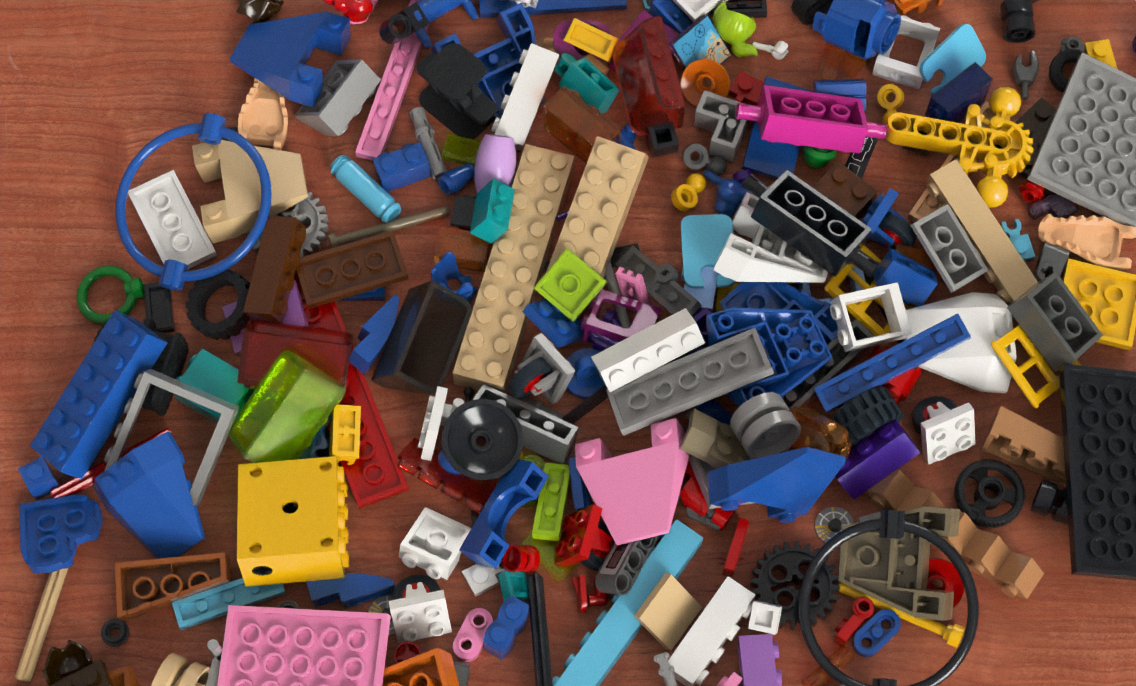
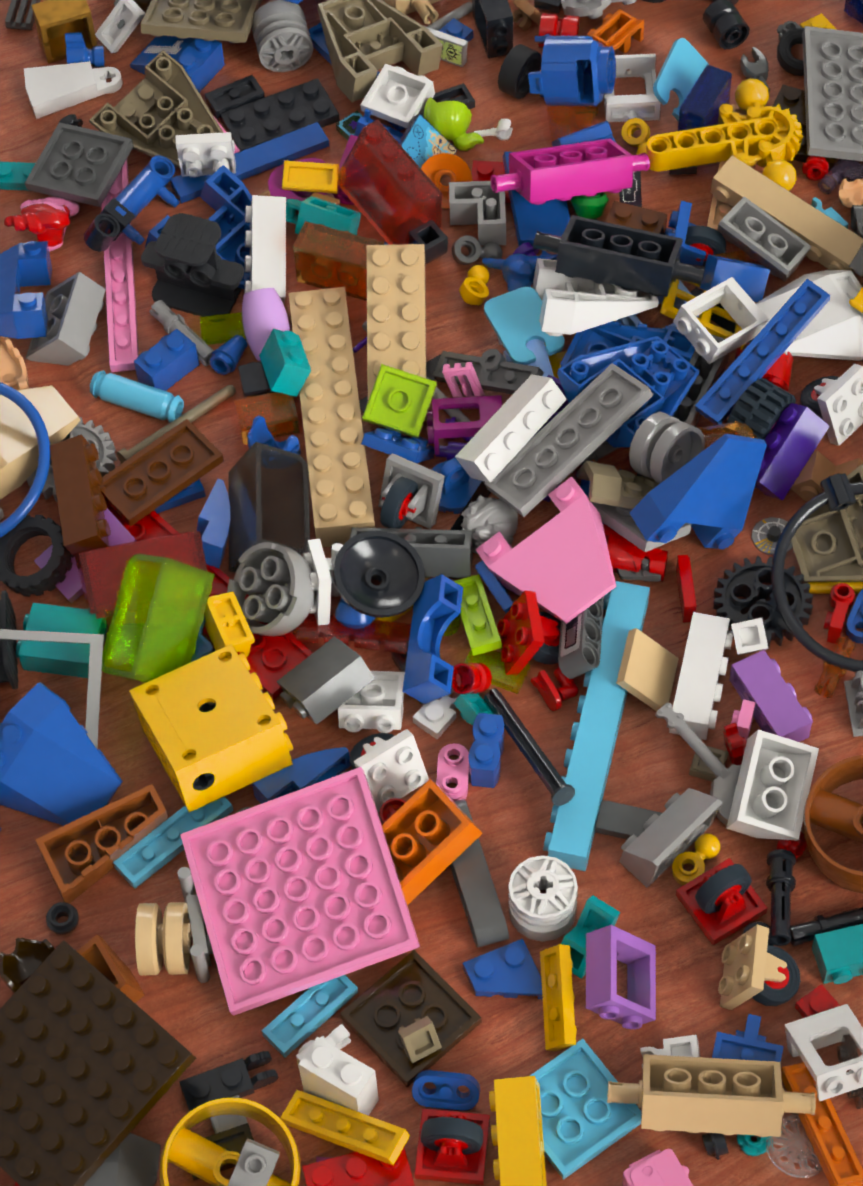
camera: 20 degrees left, 10 degrees down
(401, 514) = (324, 680): none -> dark grey brick
(402, 415) = (276, 587): none -> light grey cylinder
(596, 421) = (488, 517): none -> light grey hair

